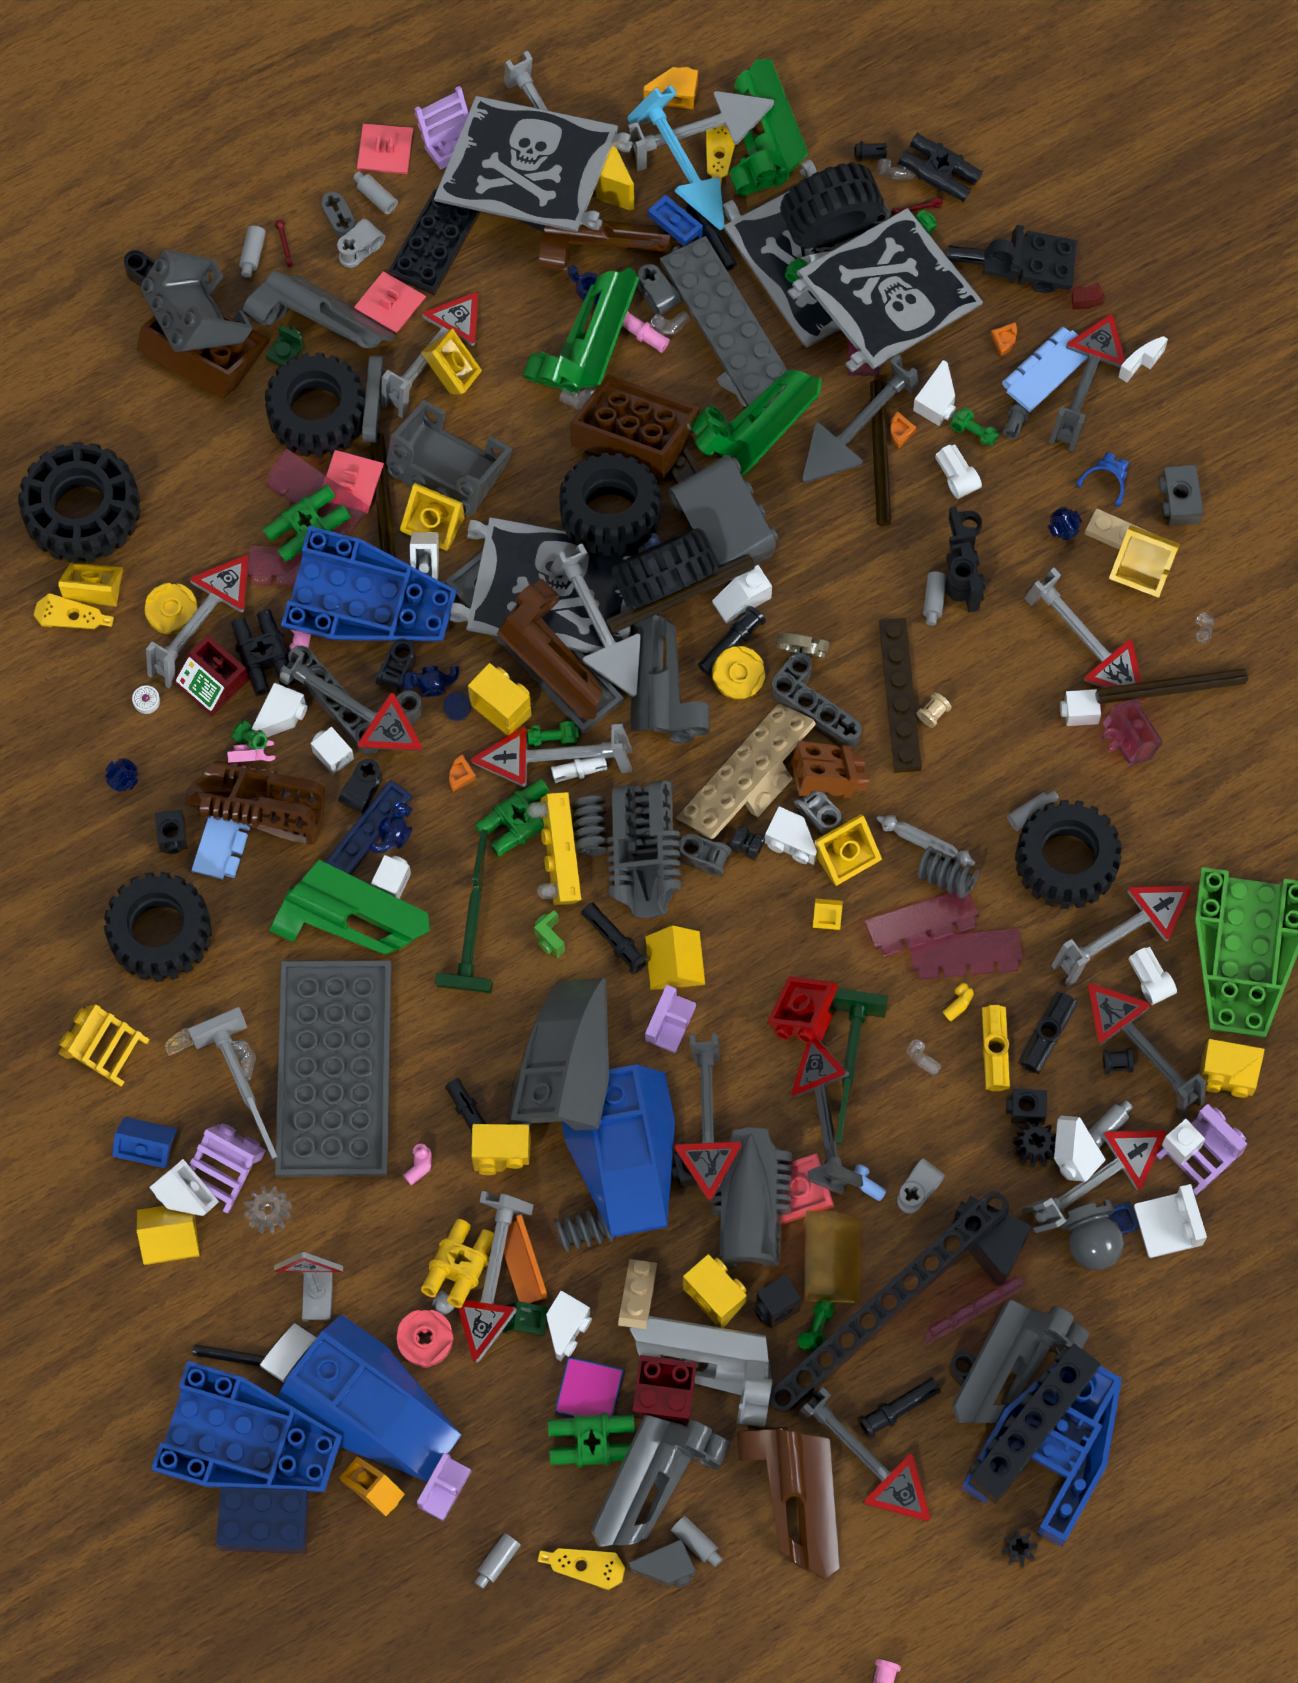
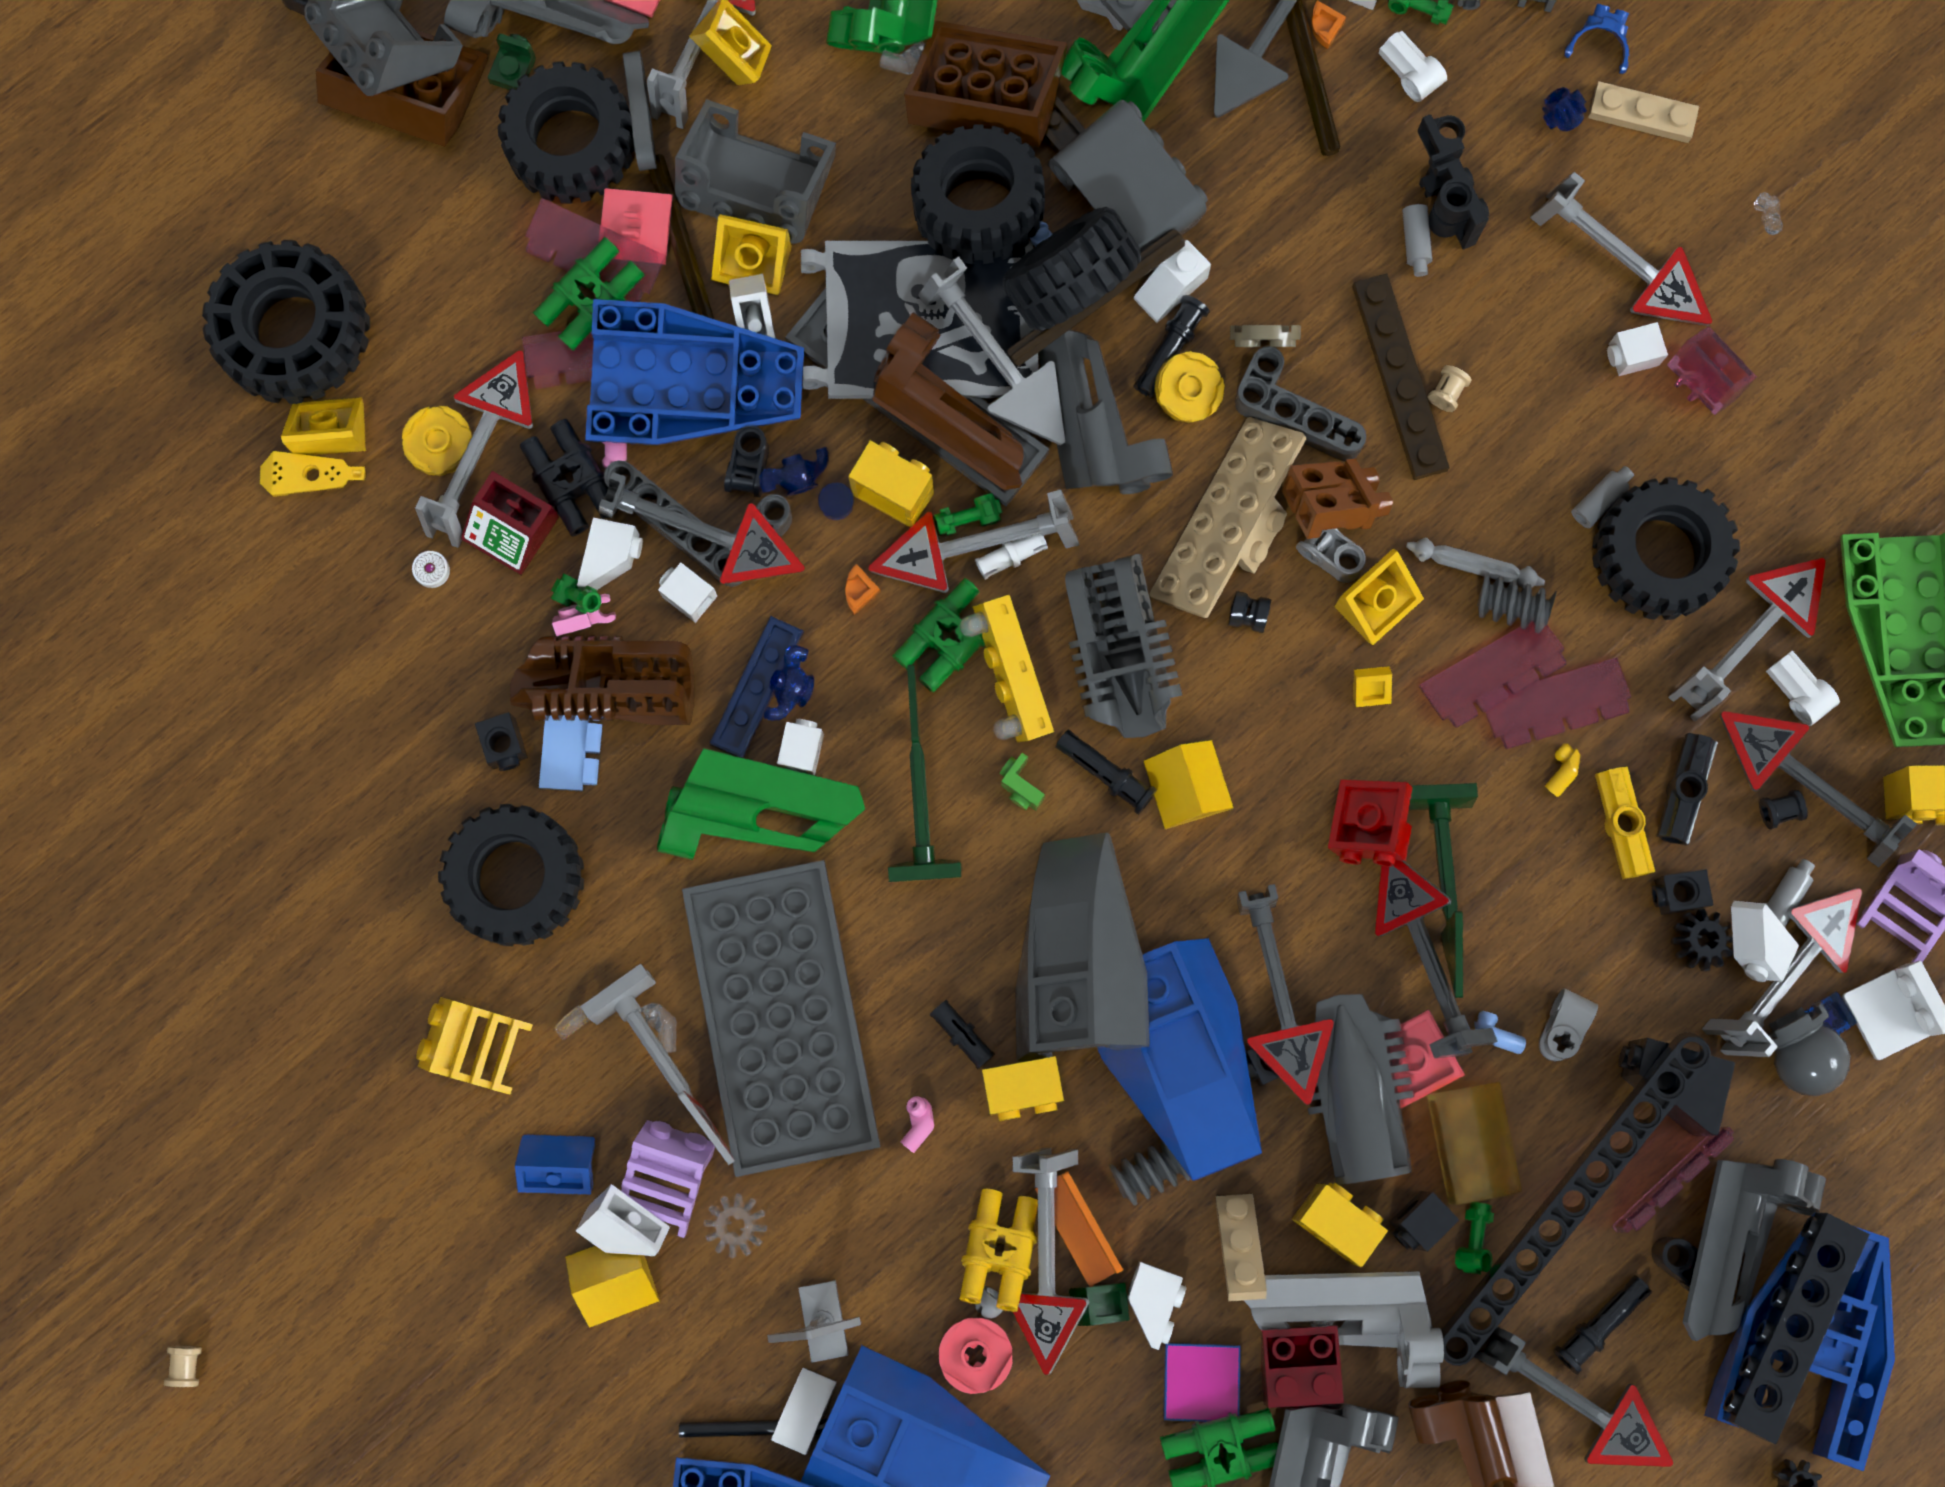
camera: 10 degrees left, 10 degrees up
(121, 774) = (420, 678): clear blue gear -> none
(360, 790) = (735, 639): black piece -> none
(587, 825) = (1040, 628): dark grey piece -> none
(670, 1020) = (1200, 867): lavender panel -> none
(705, 855) = (1199, 638): dark grey piece -> none
(791, 835) = (1304, 590): white slope -> none
(921, 1059) = (1535, 857): clear arm -> none
(1144, 560) = (1677, 138): yellow piece -> none
(1171, 686) = (1747, 299): dark brown axle -> none
(1183, 1142) = (1895, 903): white brick -> none
(1184, 481) = (1708, 26): dark grey brick -> none

